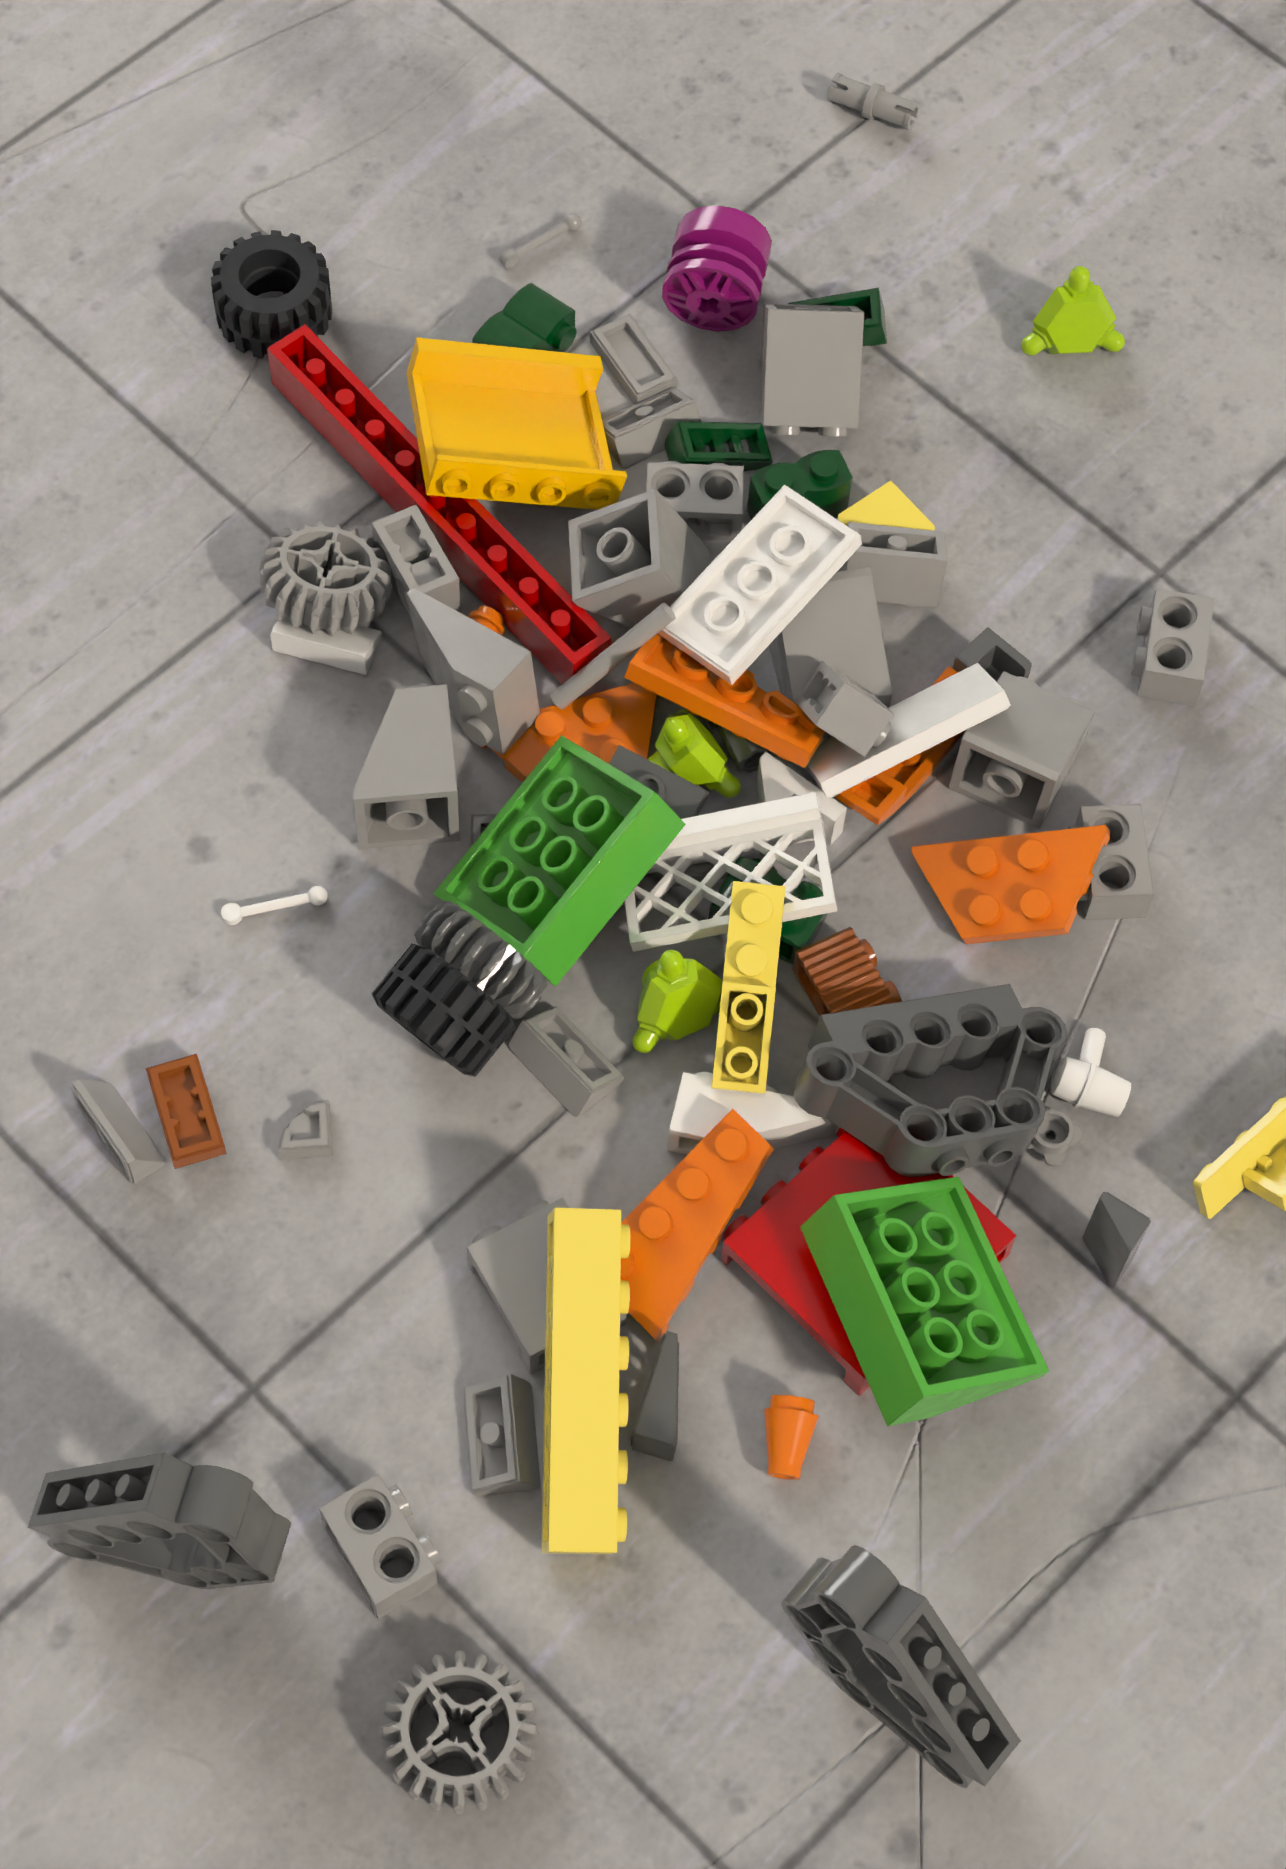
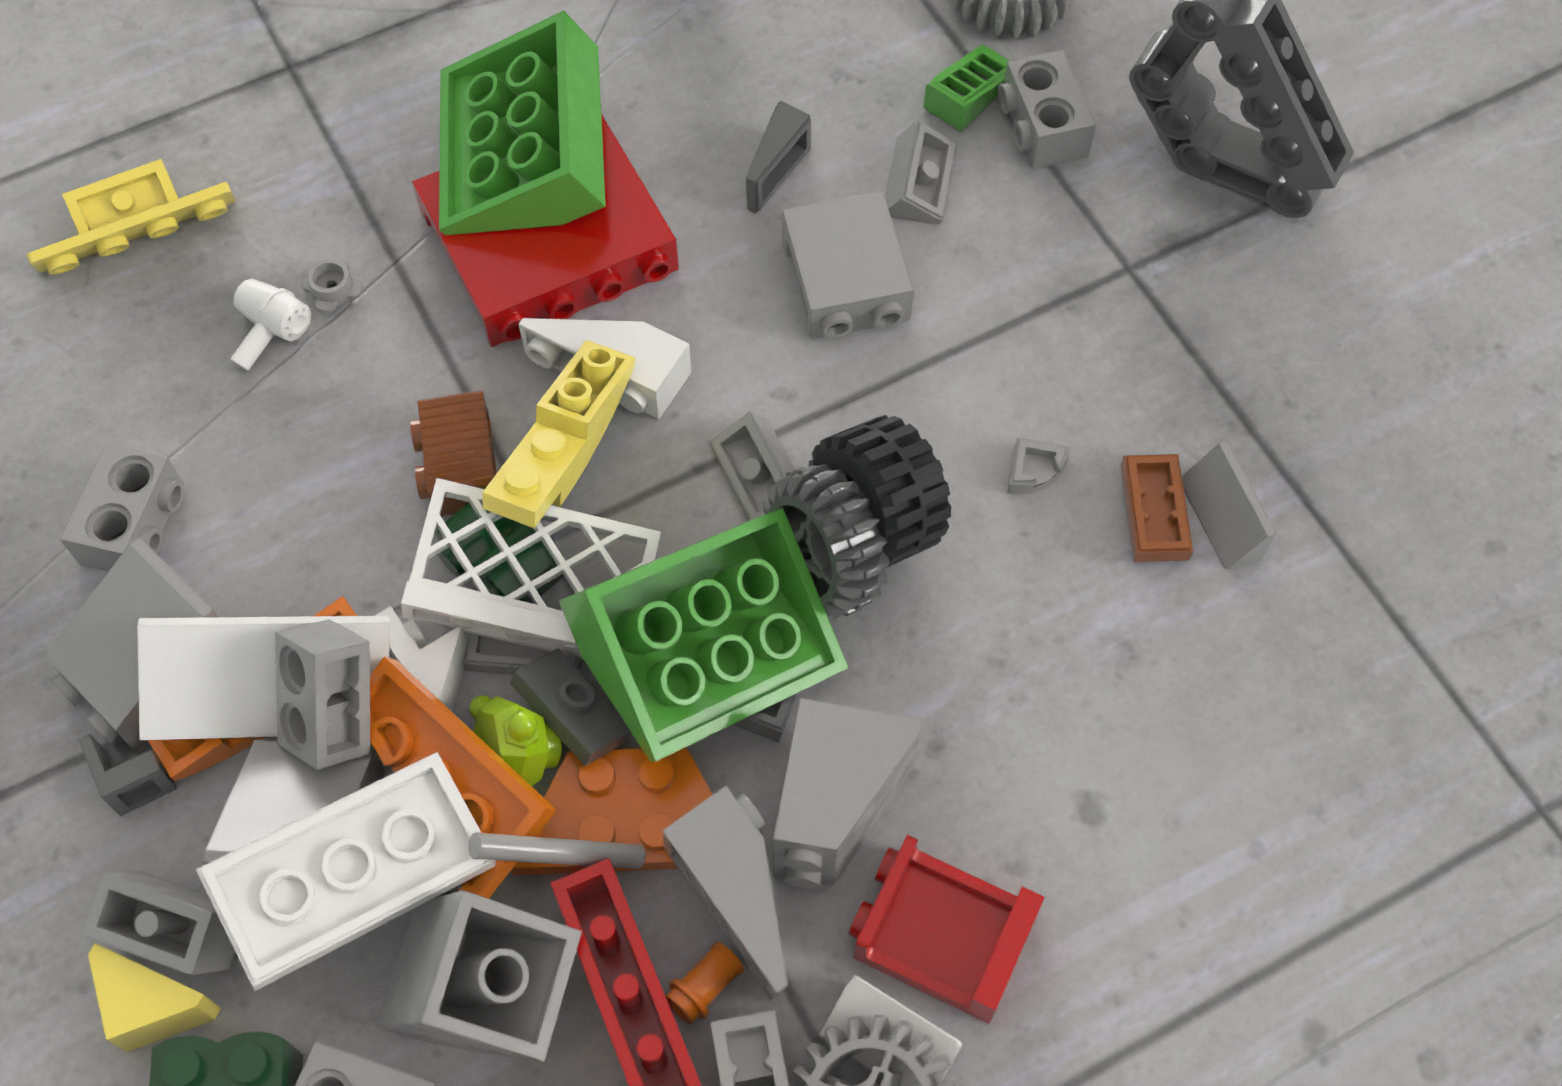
camera: 160 degrees left, 0 degrees up
(233, 913) = (1069, 717): white hinge -> none
(300, 719) = (943, 930): none -> red panel
(494, 1527) = (958, 110): none -> bright green slope
(583, 1382) = (839, 158): light yellow brick -> none
(675, 1000) = (632, 482): lime rock -> none
(685, 1219) = (704, 275): orange wing -> none
(789, 1431) = (673, 113): orange cone -> none
(863, 1047) = (324, 340): dark grey brick -> none
(1013, 882) = (236, 506): orange wing -> none
(1114, 1236) = (324, 153): dark grey slope -> none

